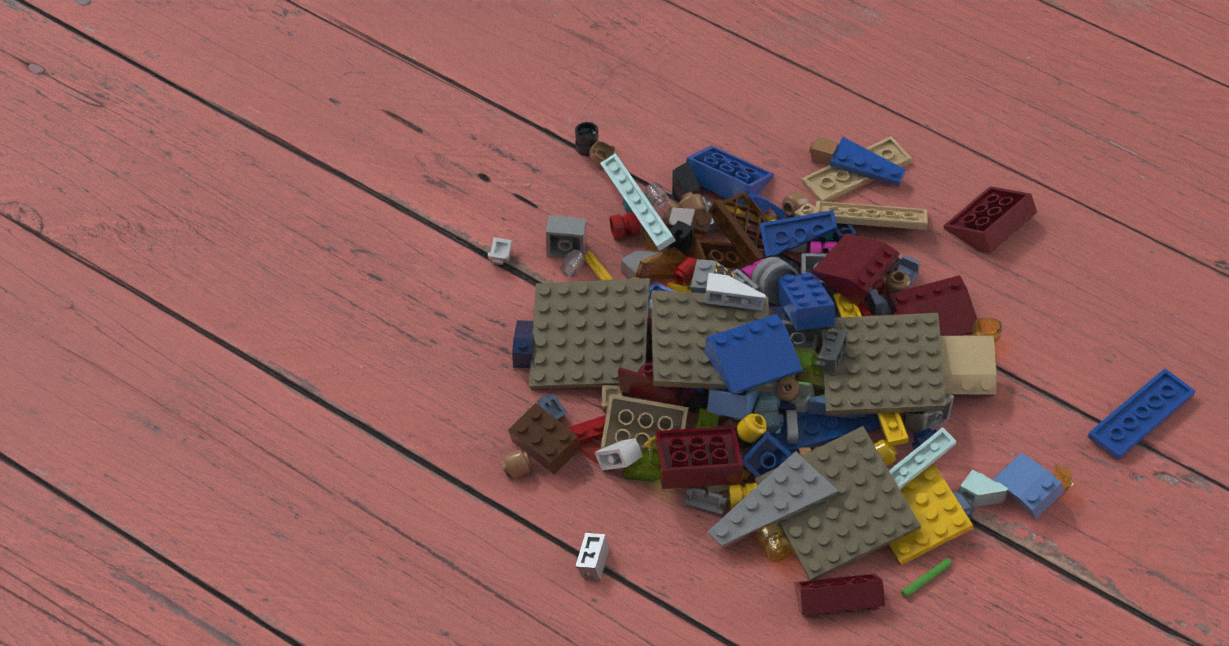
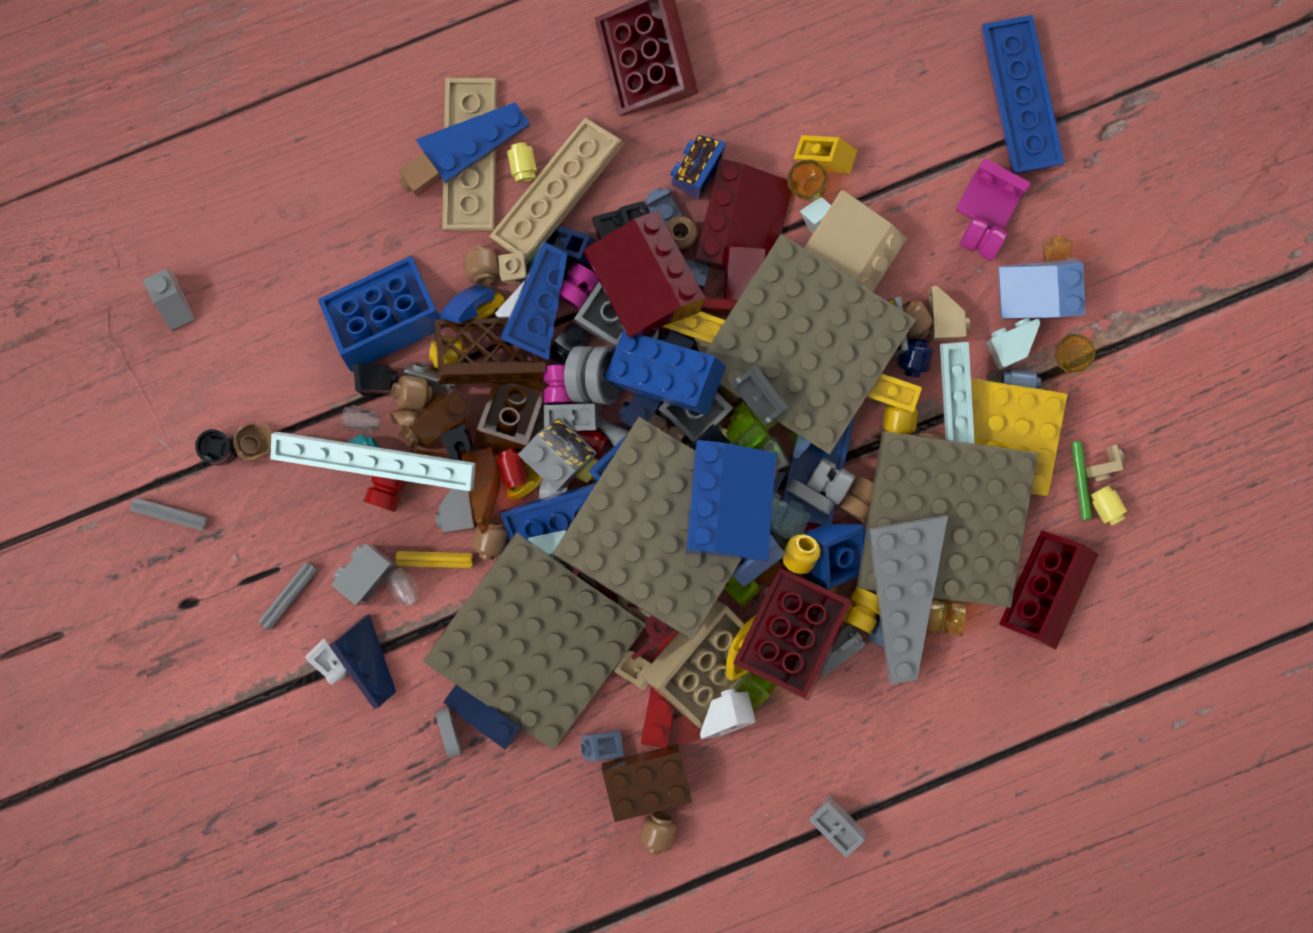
camera: 60 degrees left, 35 degrees up
(500, 329) = (448, 732): none -> light grey beam
(513, 266) = (364, 661): none -> dark blue wing
(523, 216) = (287, 596): none -> light grey axle
(530, 141) = (168, 514): none -> light grey axle
(655, 79) = (169, 299): none -> light grey slope
(733, 293) = (617, 468): white slope -> none
(810, 429) = (830, 480): none -> light grey wheel
(873, 193) = (522, 162): none -> light yellow brick
(922, 597) = (1108, 505): none -> light yellow brick
(942, 270) = (698, 165): none -> slope
(943, 582) = (1104, 471): none -> tan bracket
(952, 425) = (923, 321): none -> medium nougat head
(967, 445) = (948, 317): none -> tan slope
(1003, 523) = (1074, 353): none -> clear yellow hair
(1014, 334) = (830, 152): none -> yellow slope
(1032, 437) = (983, 238): none -> dark pink wheel
(1064, 431) = (992, 194): none -> dark pink bracket

